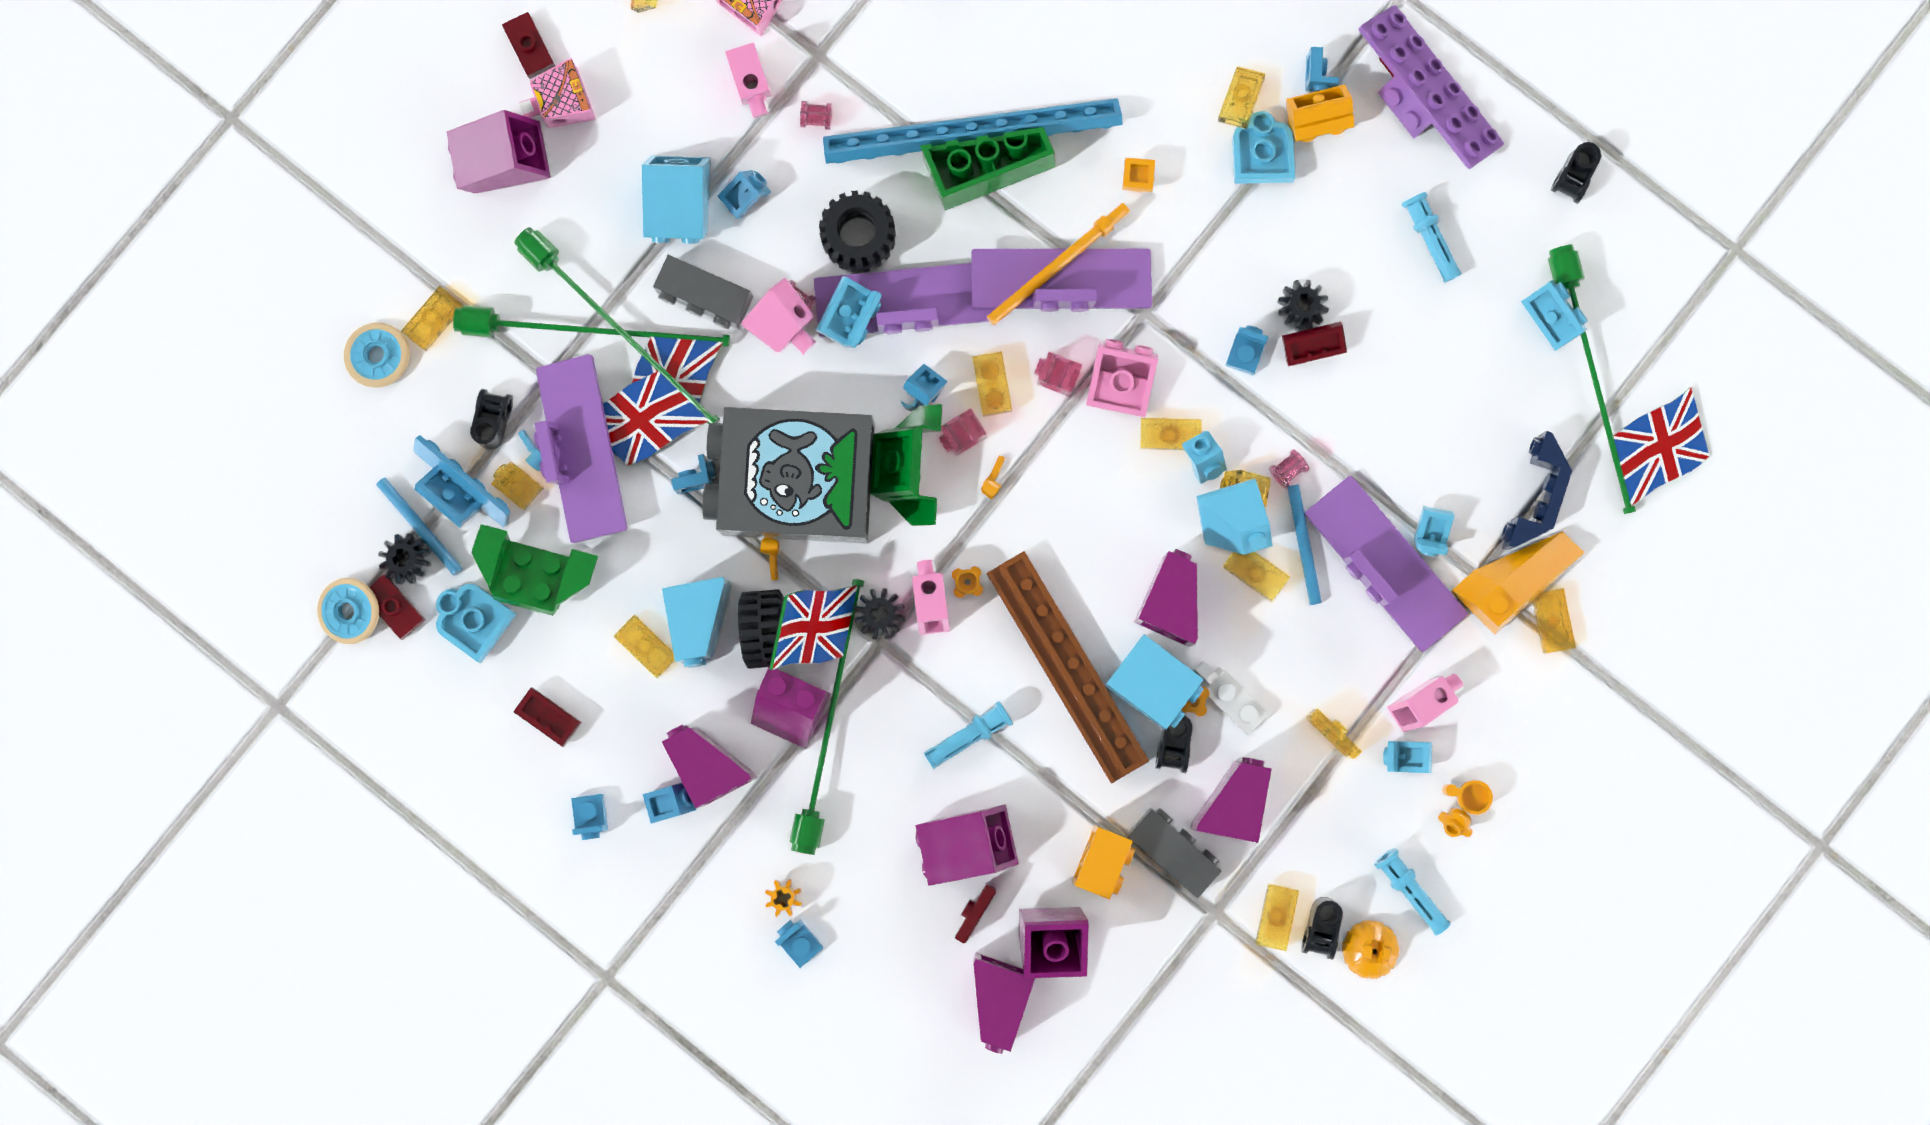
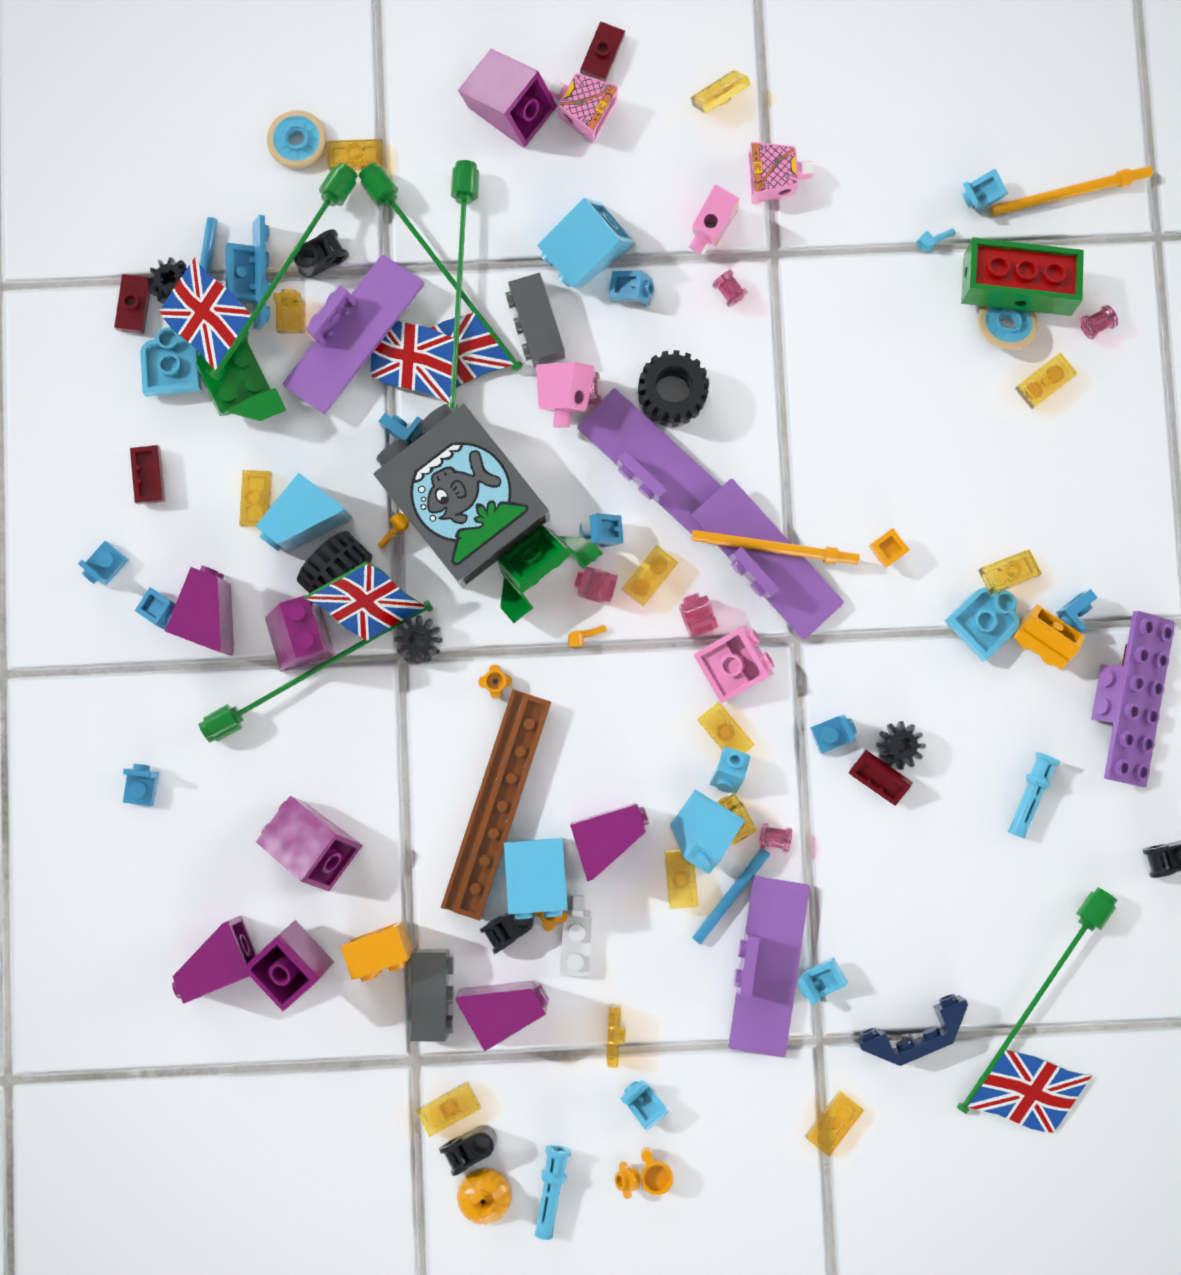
camera: 40 degrees right, 0 degrees up
(365, 611) = (113, 286): medium azure wheel -> none
(462, 548) = (211, 315): none -> flag
(535, 457) = (316, 307): medium azure hand -> none
(785, 889) = (156, 753): light orange gear -> none
(849, 313) = (609, 433): medium azure bracket -> none
(909, 138) = (816, 405): dark azure plate -> none
(930, 608) = (450, 674): bright pink torso -> none
(973, 912) = (264, 890): dark red plate -> none
(979, 729) = (399, 780): medium azure pin -> none
(987, 164) = (800, 435): green wedge -> none
(1426, 702) = (694, 1083): bright pink torso -> none
(1512, 582) = (833, 1068): light orange wedge -> none
(1555, 314) = (1055, 932): medium azure bracket -> none

